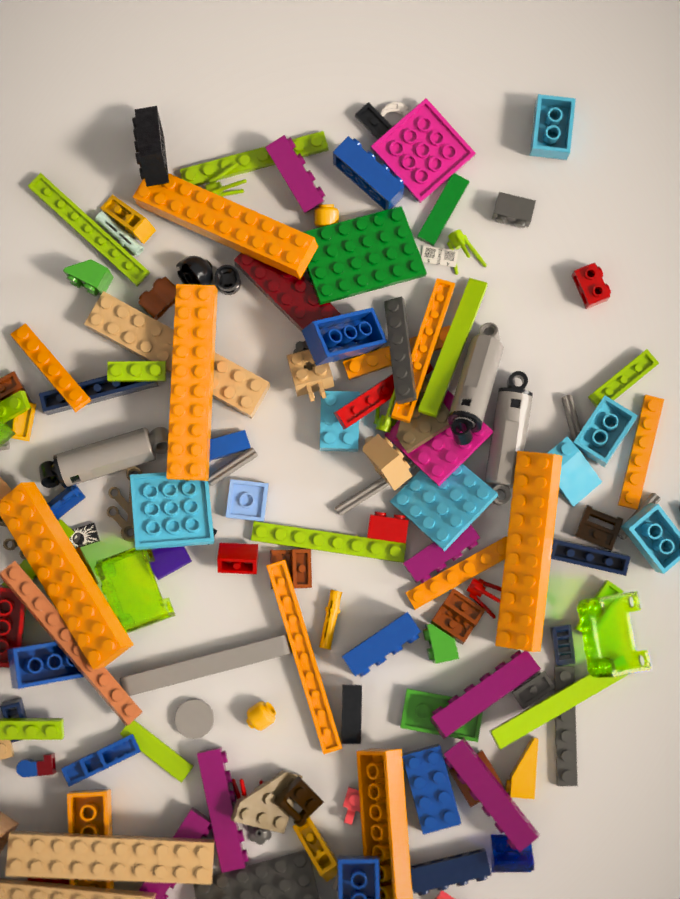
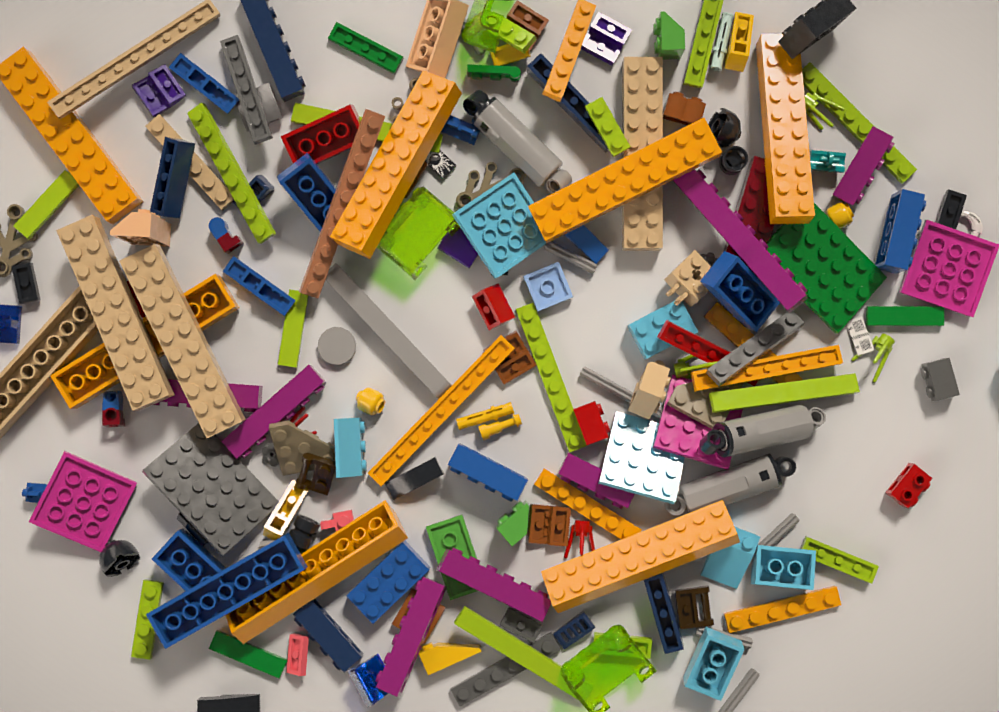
camera: 65 degrees right, 5 degrees up
(32, 443) = (493, 72): none -> green plate
(59, 331) = (605, 38): none -> slope
(273, 201) = (827, 161): none -> teal hips
(291, 757) = (349, 447): none -> medium azure slope
(300, 309) = (742, 239): none -> magenta brick
(344, 842) = (303, 531): none -> black wheel
(346, 614) = (496, 427): none -> yellow piece

